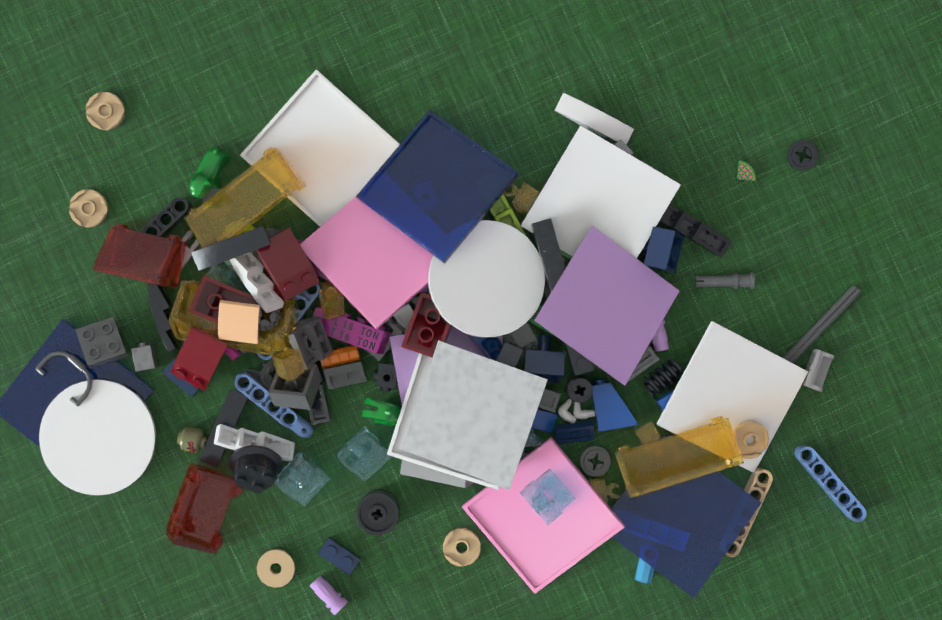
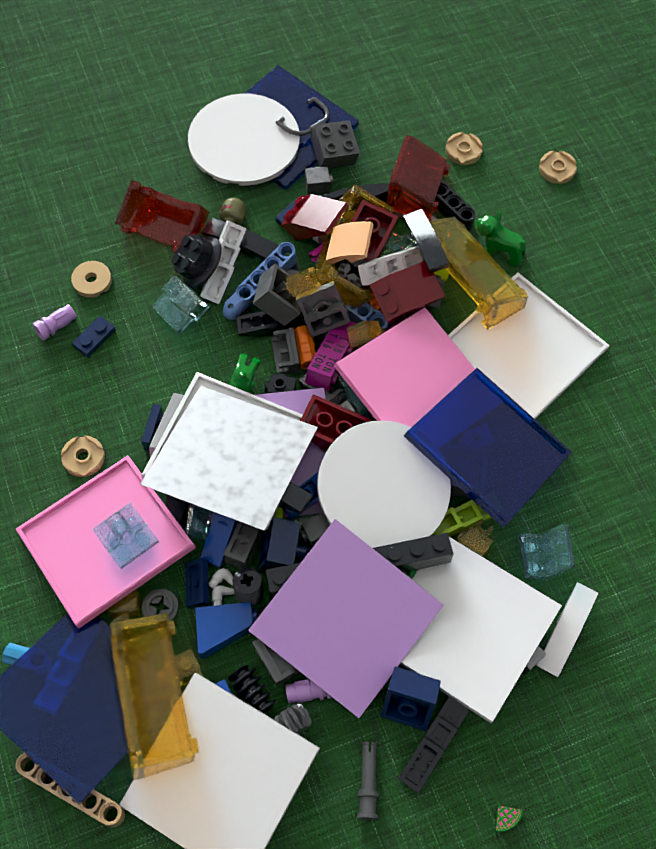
camera: 90 degrees right, 25 degrees down
(363, 454) = (198, 349): clear light blue brick -> none
(378, 523) = (134, 371): black wheel -> none
(424, 486) = (152, 424): none -> dark blue plate
(531, 136) = (547, 553): none -> clear light blue bracket
(685, 343) = (295, 718): none -> dark grey gear
(760, 441) = (176, 793): tan tile -> none

